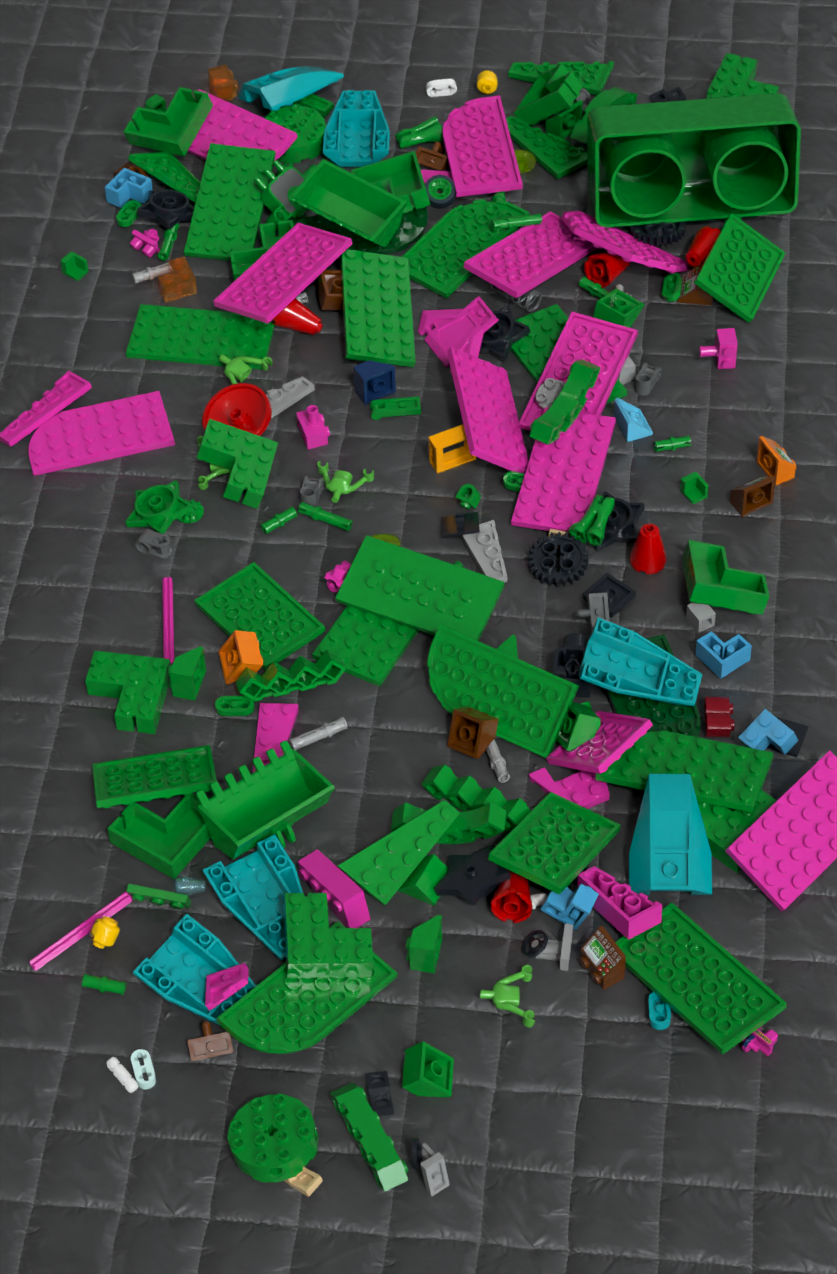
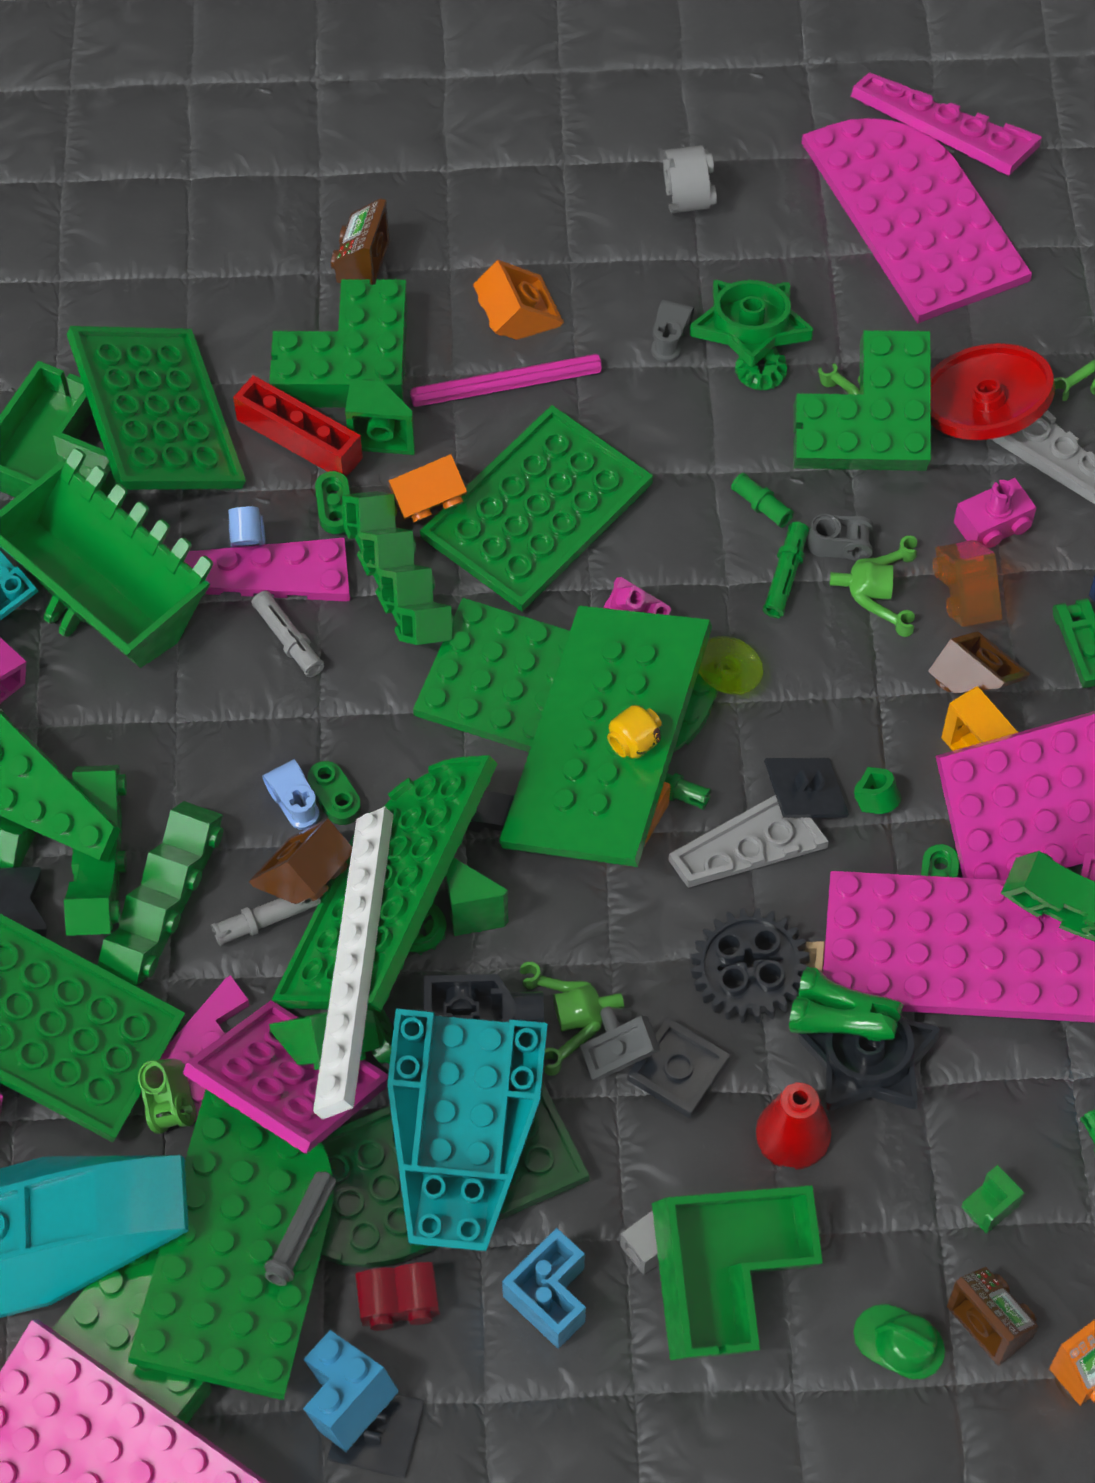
camera: 80 degrees right, 10 degrees up
(56, 518) = (688, 178): none -> light grey brick
(57, 671) = (362, 243): none -> reddish brown slope
(117, 610) = (516, 301): none -> orange slope
(182, 713) = (297, 427): none -> red brick
(249, 742) = (246, 526): none -> light blue piece
(353, 437) = (972, 582): none -> clear orange brick
(409, 444) = (975, 662): none -> slope
(422, 738) = (293, 794): none -> light blue piece
(425, 723) = (332, 790): none -> green plate
(433, 568) = (634, 731): none -> yellow head
(546, 697) = (353, 965): none -> white plate
(565, 628) = (575, 1008): none -> bright green piece
(601, 800) = (166, 1095): none -> bright green piece
(690, 737) = (281, 1267): none -> dark grey axle
(758, 533) = (899, 1341): none -> green piece

